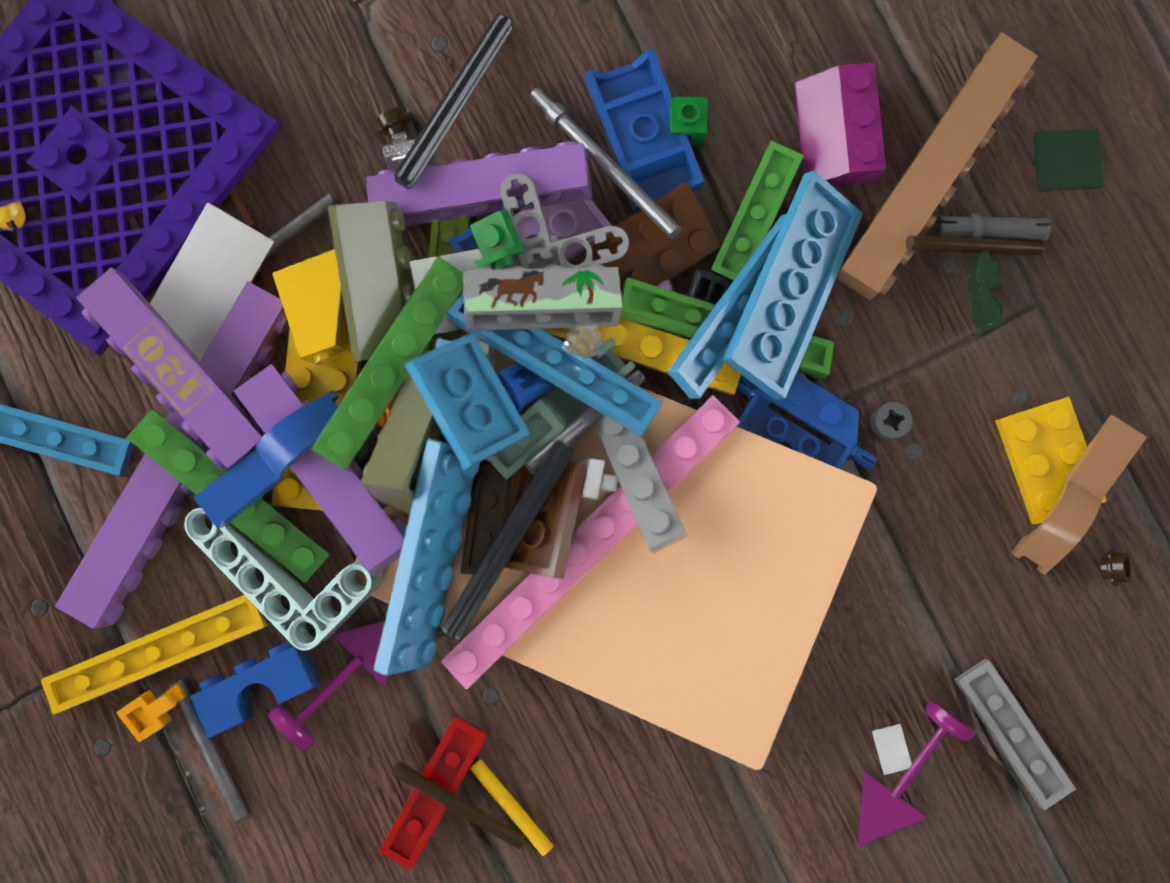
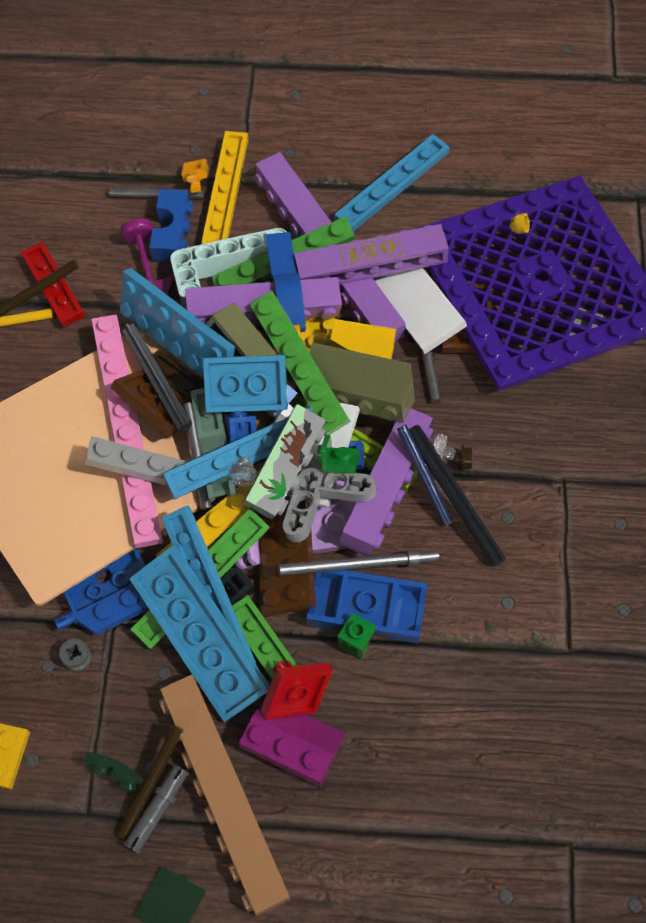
camera: 120 degrees right, 20 degrees down
(449, 145) = (425, 475): none -> dark blue bar
(596, 479) = (159, 442): white tile -> none
(792, 145) = (295, 689): none -> red tile

